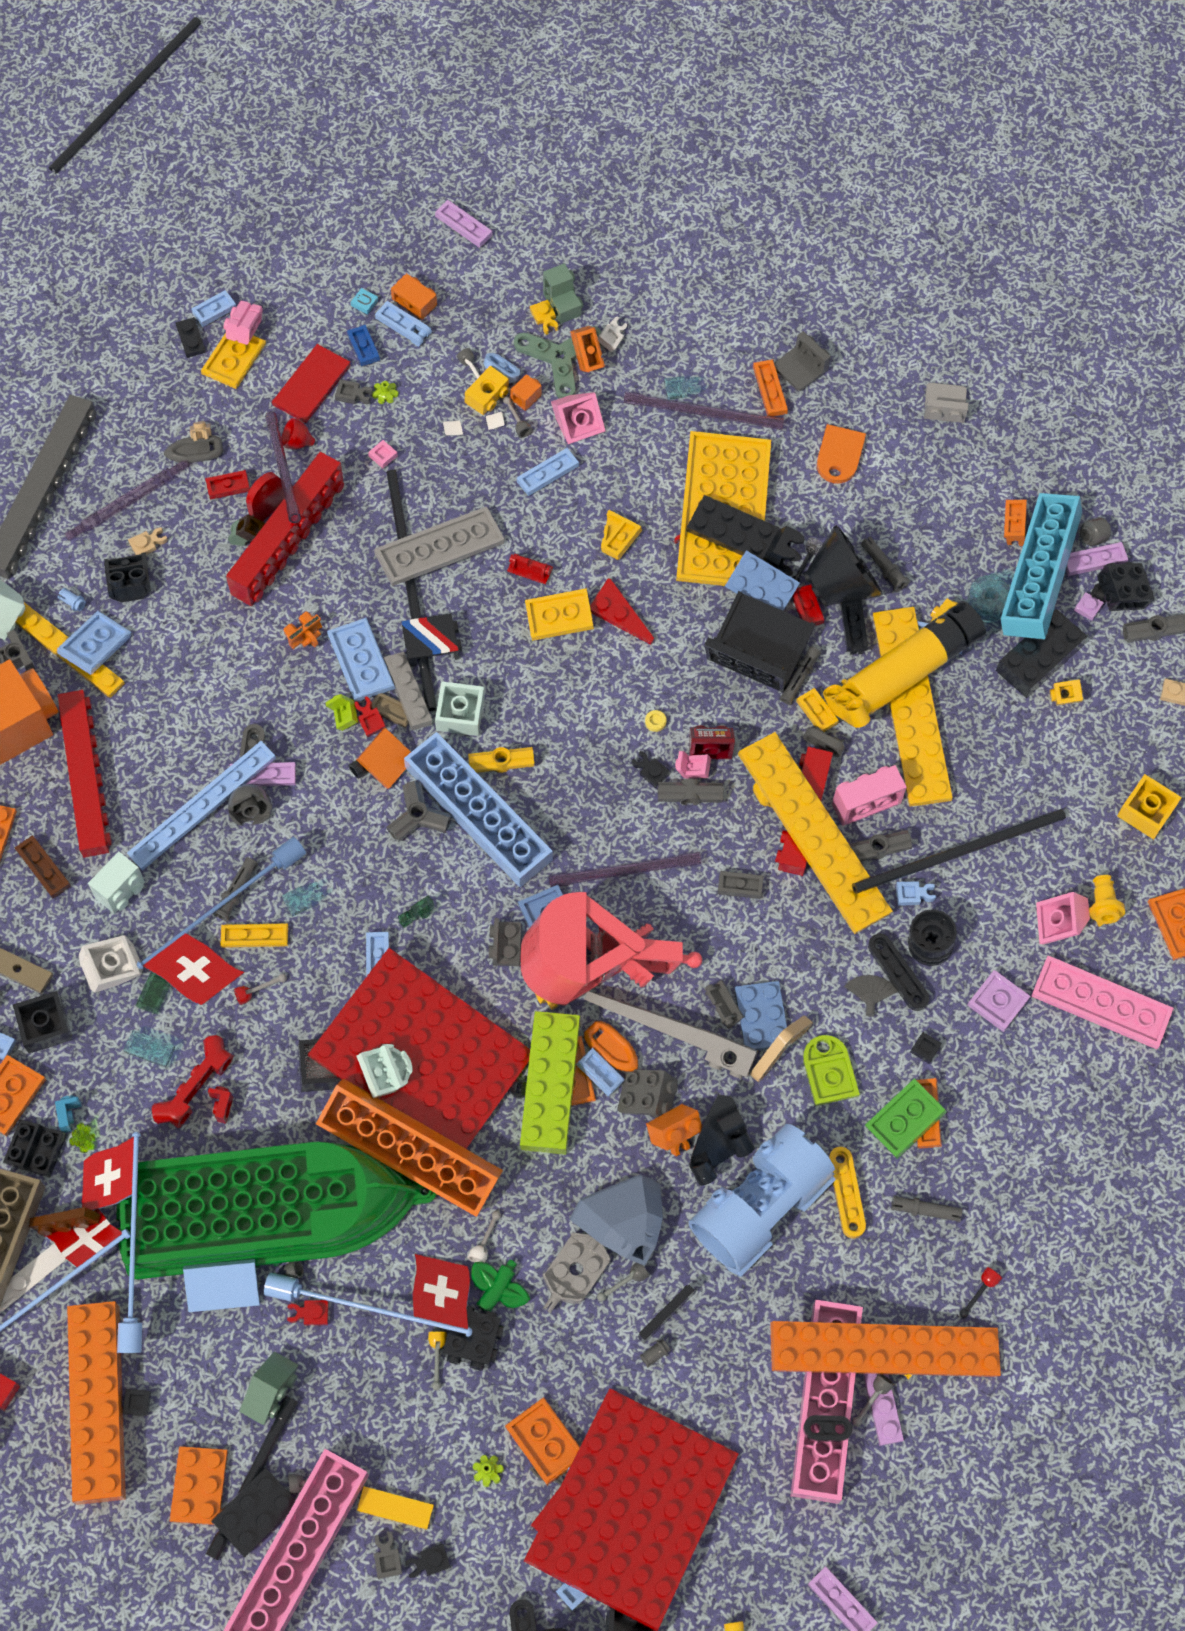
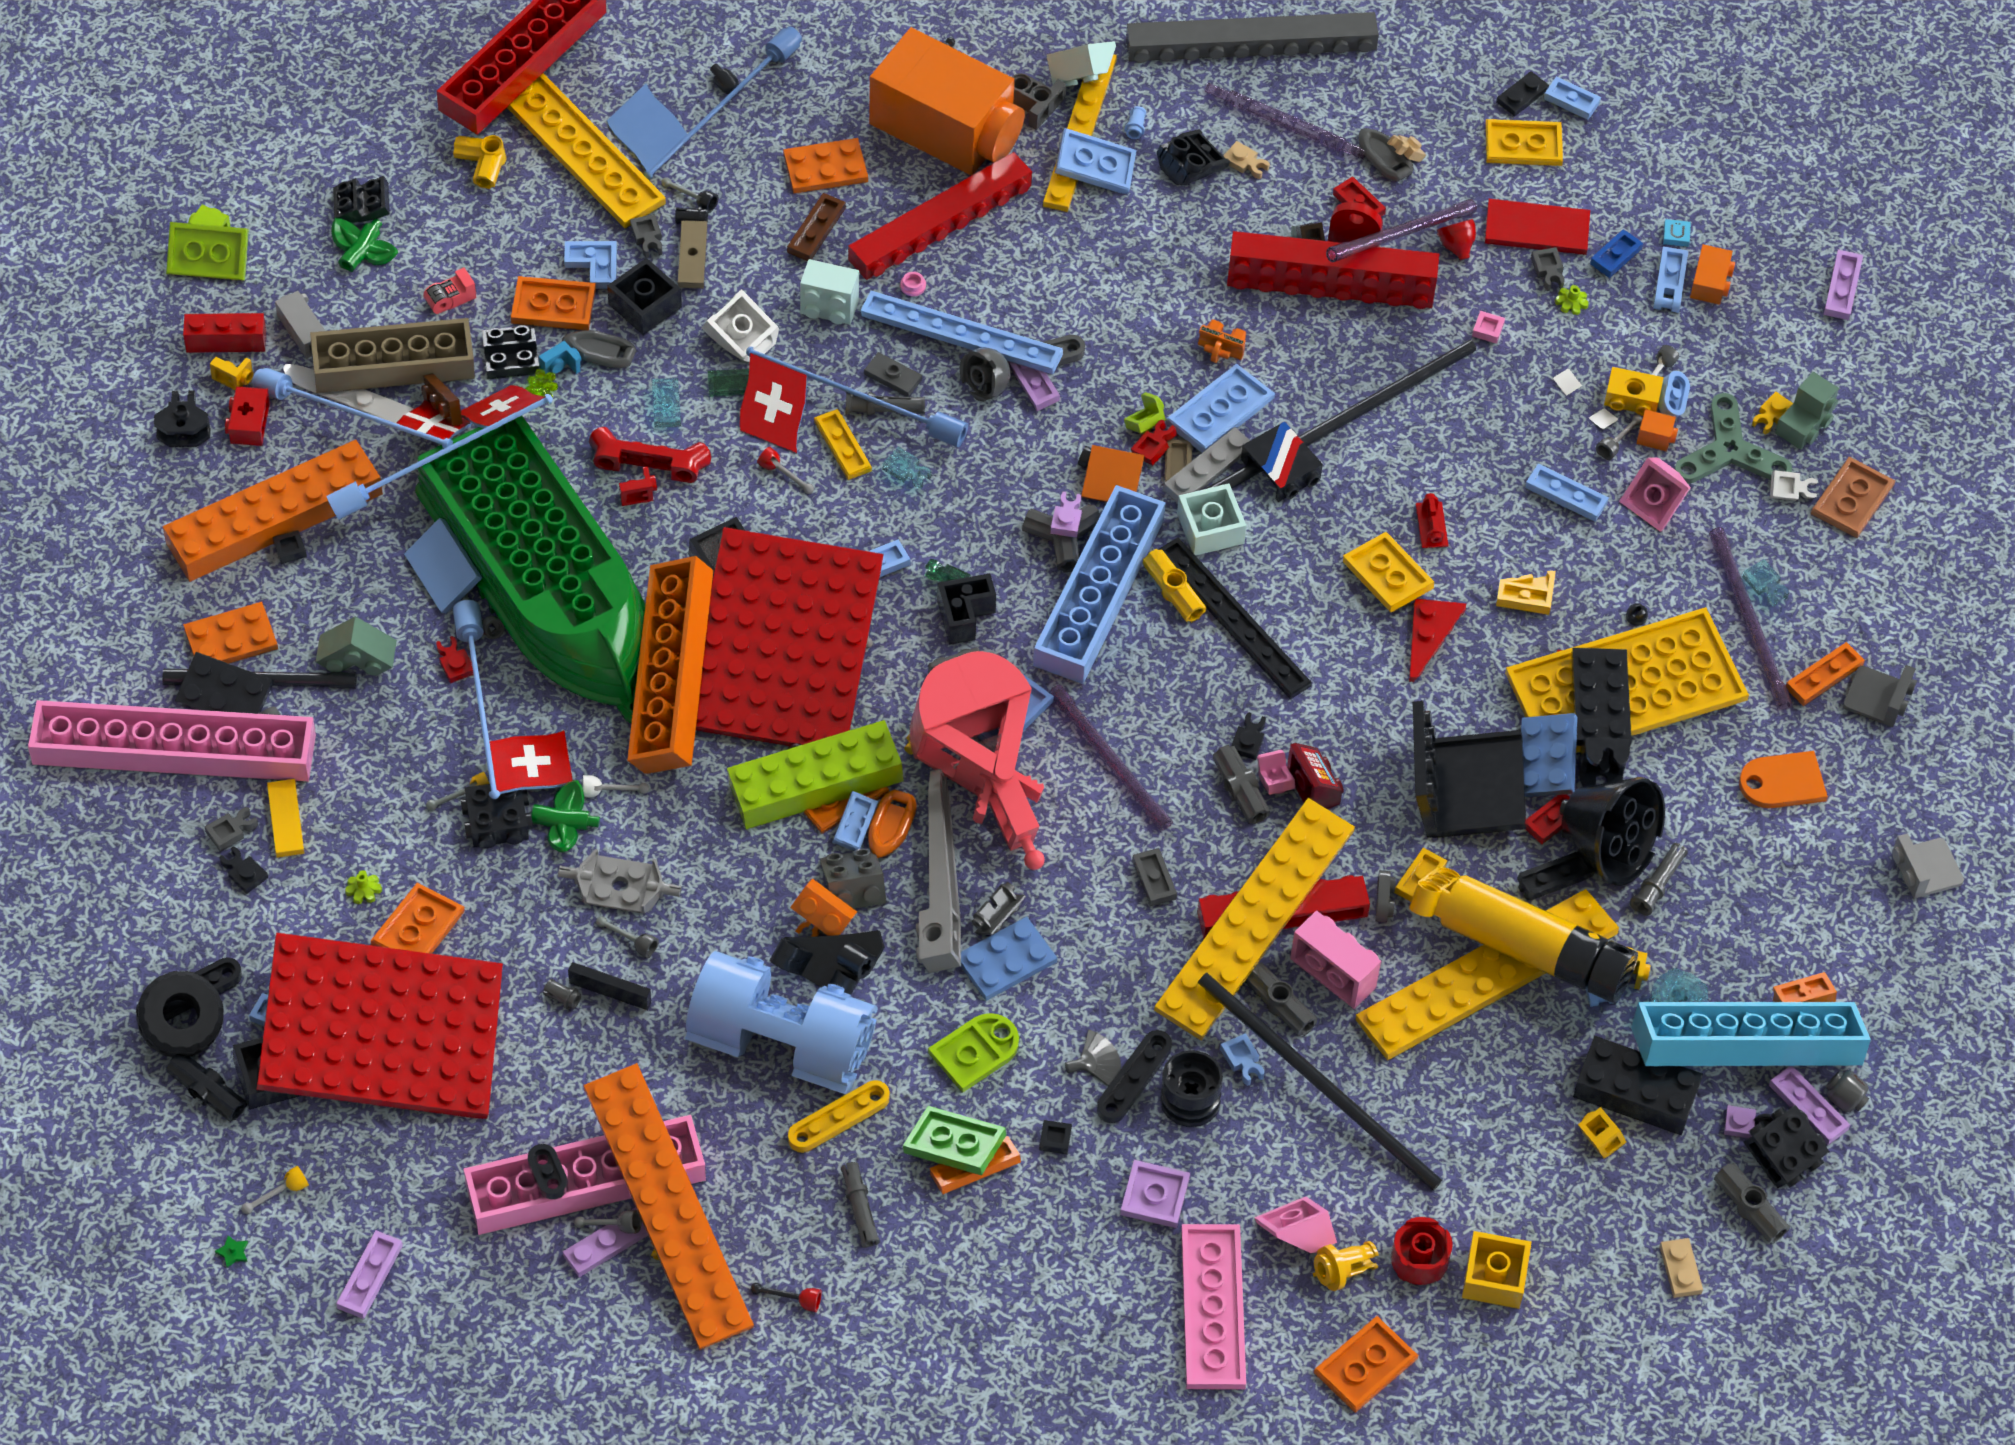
camera: 65 degrees right, 10 degrees down
(69, 1077) = (601, 348): none -> dark grey piece
(134, 821) = (913, 284): none -> bright pink plate
(209, 871) = (893, 374): none -> dark grey plate
(243, 322) = (1568, 128): bright pink brick -> none
(385, 1069) = (741, 602): light aqua slope -> none
(413, 805) = (1067, 517): none -> lavender plate
(439, 546) = (1403, 423): light grey plate -> none
(448, 915) = (963, 601): none -> black brick
(547, 732) = (1238, 621): none -> black tile
(587, 348) = (1747, 462): orange brick -> none
(624, 1217) = (695, 898): sand blue brick -> none
(636, 303) = (1853, 497): none -> nougat tile
(655, 721) = (1313, 720): light yellow tile -> none
(662, 476) = (1641, 616): none -> black hinge
(784, 1039) = (979, 973): tan beam -> none
(811, 657) = (1461, 843): dark grey pin -> none
(1111, 857) = (1421, 1251): none -> red brick

